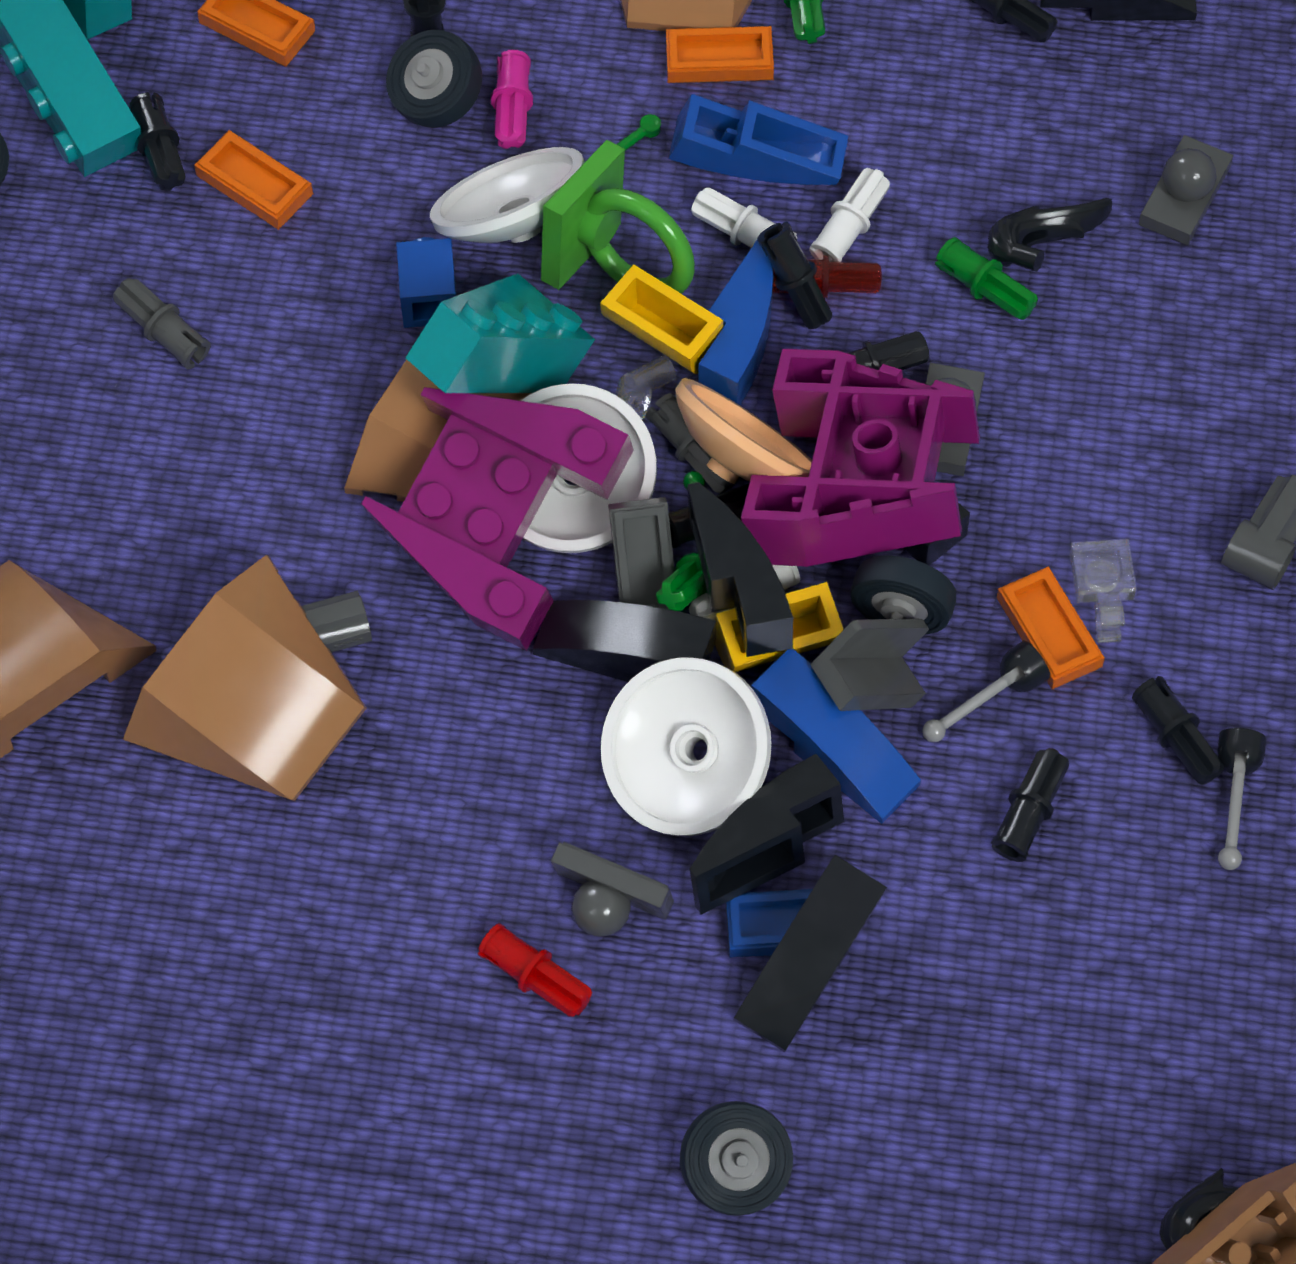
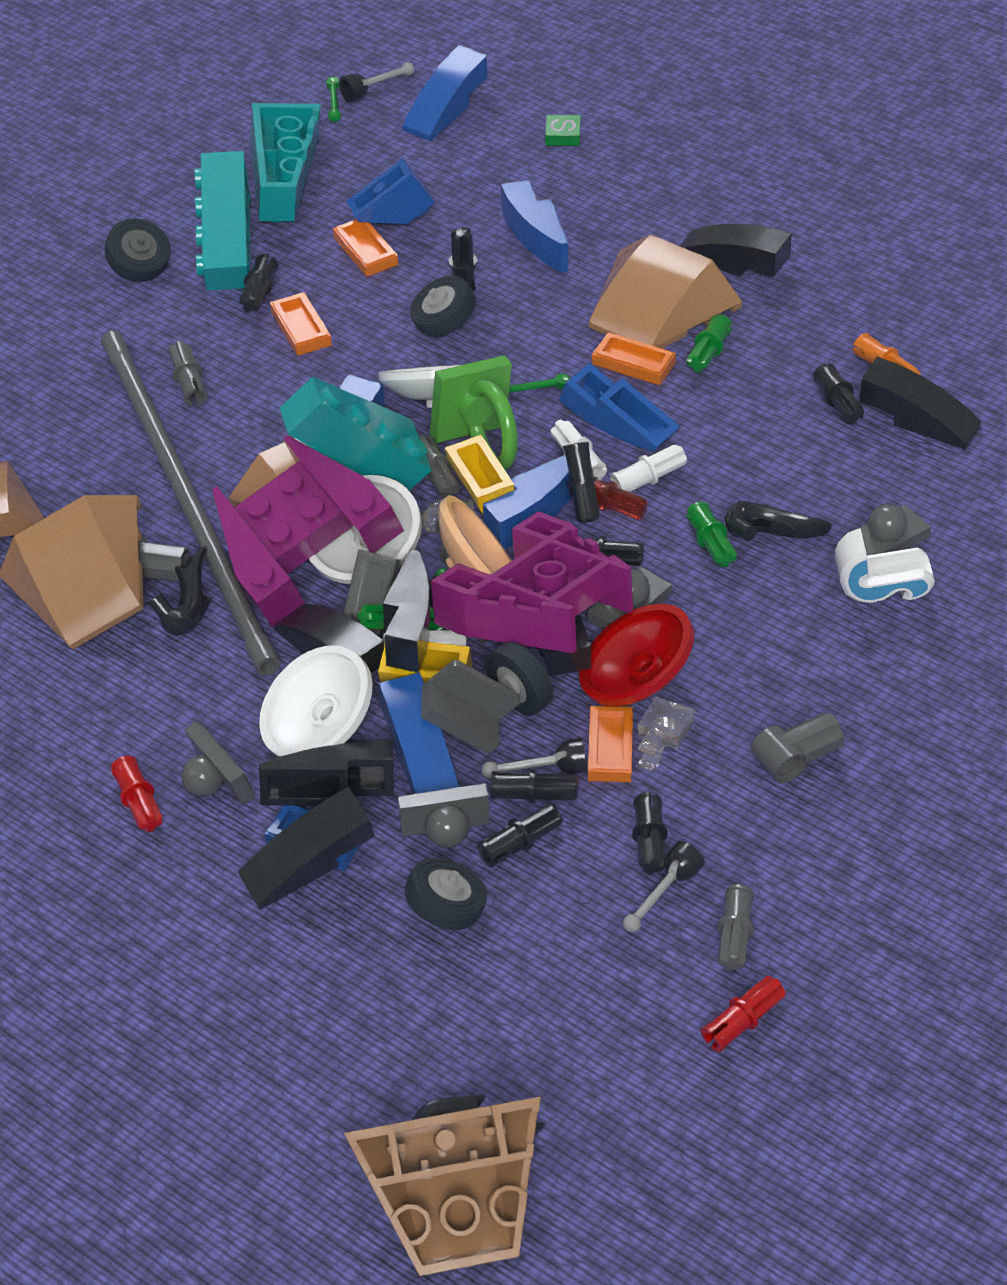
camera: 30 degrees right, 15 degrees down
(415, 676) = (191, 603): none -> black piece
(512, 98) = (484, 334): dark pink axle -> none
(532, 685) = (256, 641): none -> dark grey piece
(608, 341) = (441, 473): none -> dark grey axle
(736, 1158) = (174, 946): black wheel -> none
(931, 822) = (444, 813): none -> dark grey tile
(1003, 731) = (533, 786): none -> black axle
(1005, 928) = (445, 893): none -> black wheel
(1011, 473) = (638, 655): none -> red dish
(1220, 252) = (883, 574): none -> white animal

